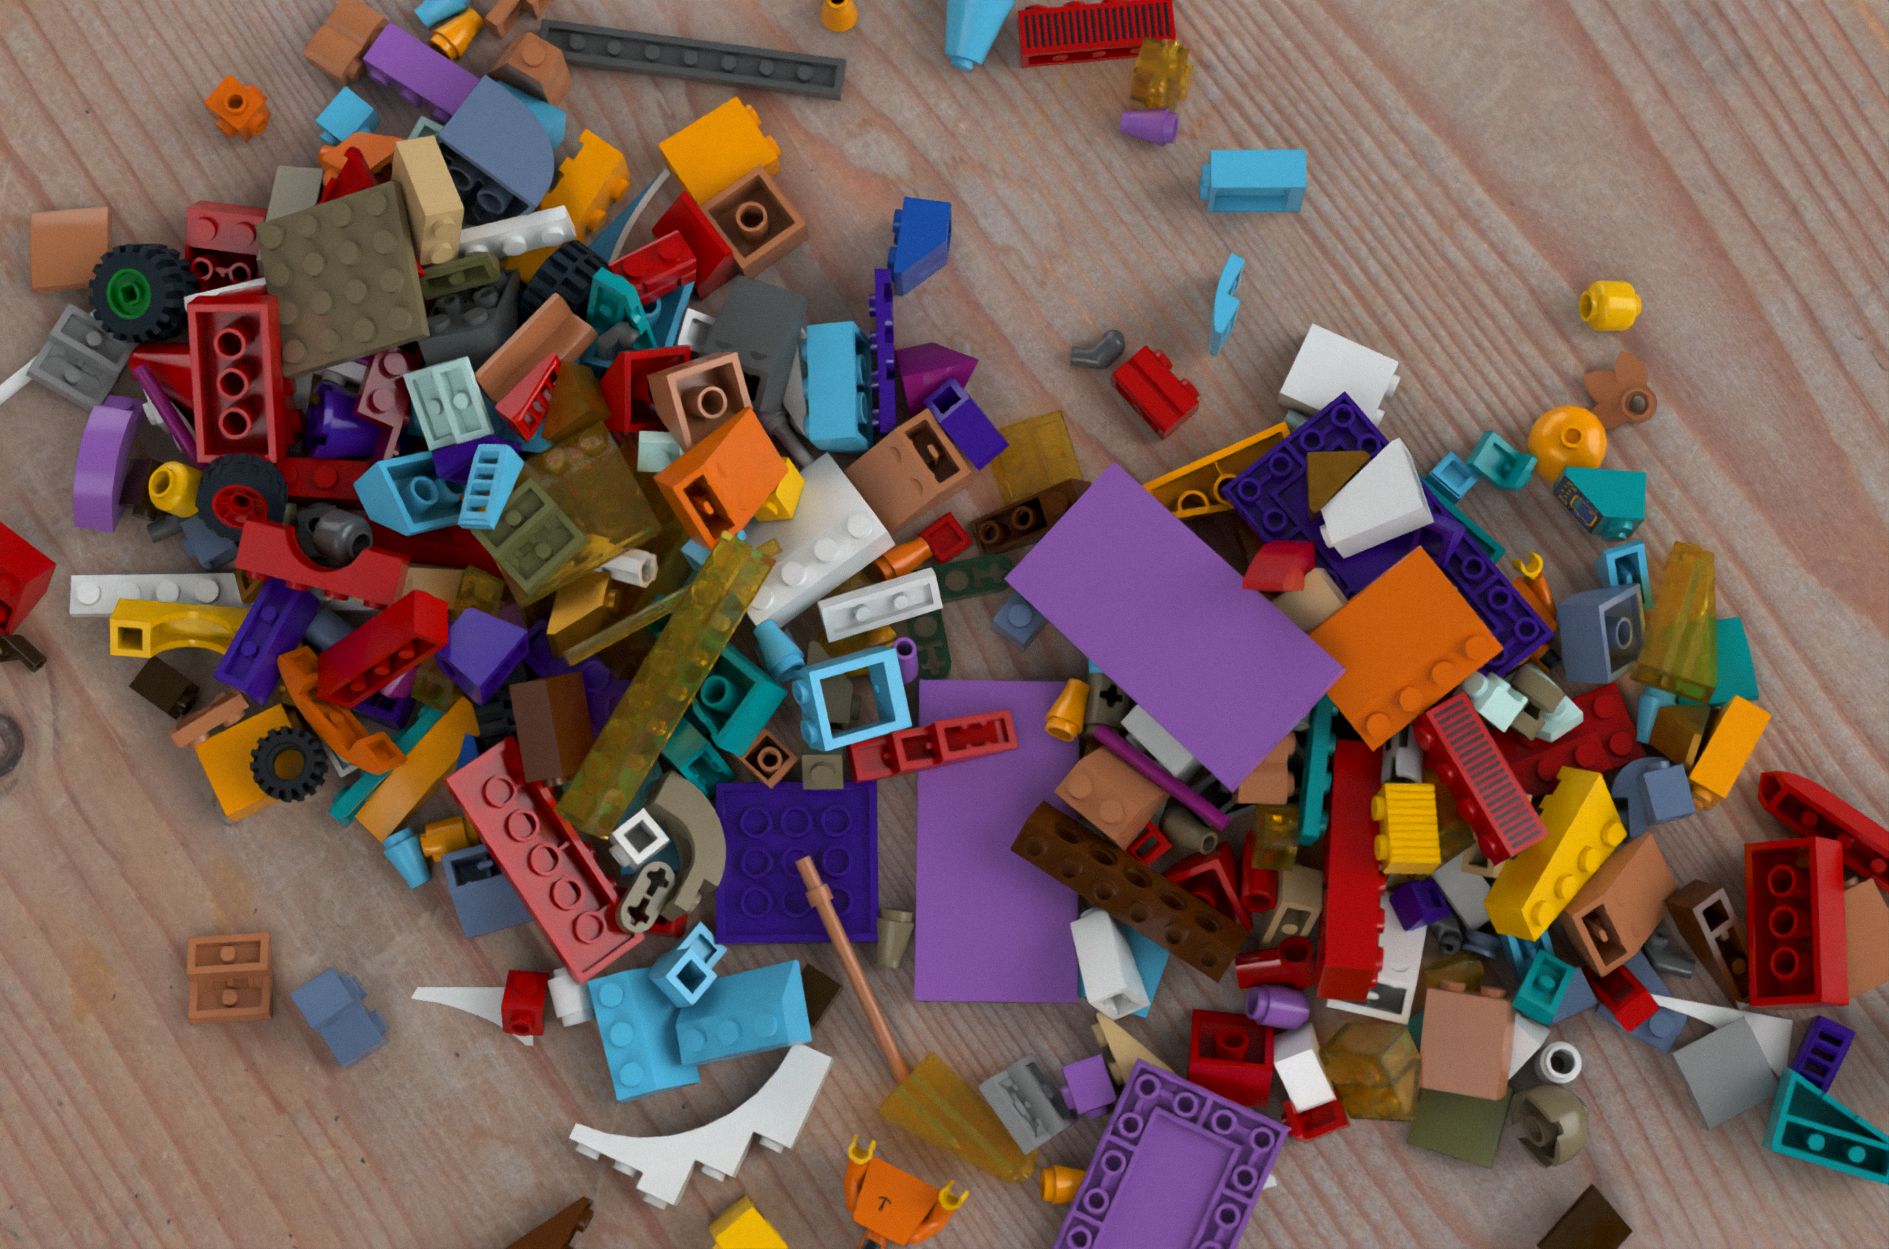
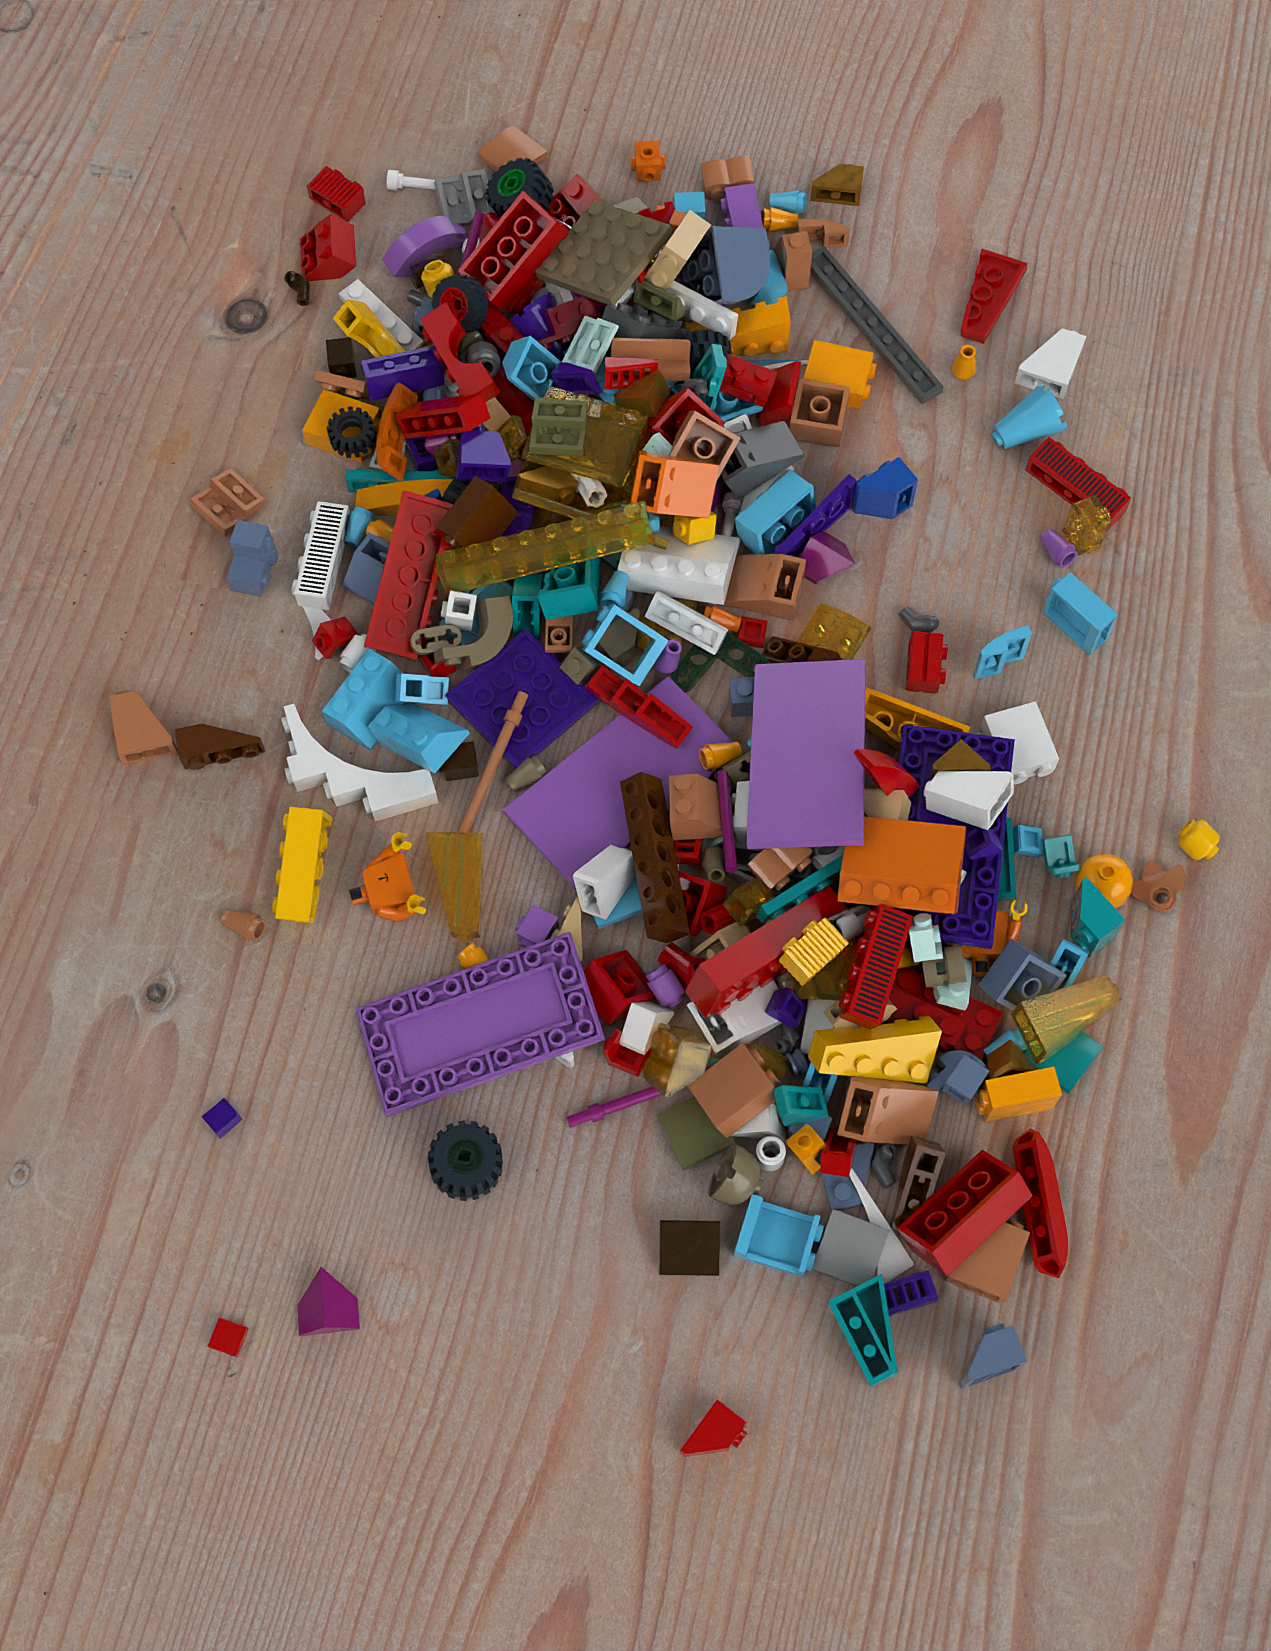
camera: 45 degrees right, 10 degrees down
(408, 929) = (322, 556): none -> white brick
(489, 463) = (565, 387): medium azure slope -> none
(966, 423) = (817, 585): dark purple slope -> none
(1028, 1103) = (499, 905): light grey slope -> none
(1348, 1202) = (596, 1112): none -> magenta bar
(1587, 1020) = (805, 1146): none -> light orange bracket
(1649, 1133) = (778, 1237): none -> medium azure panel

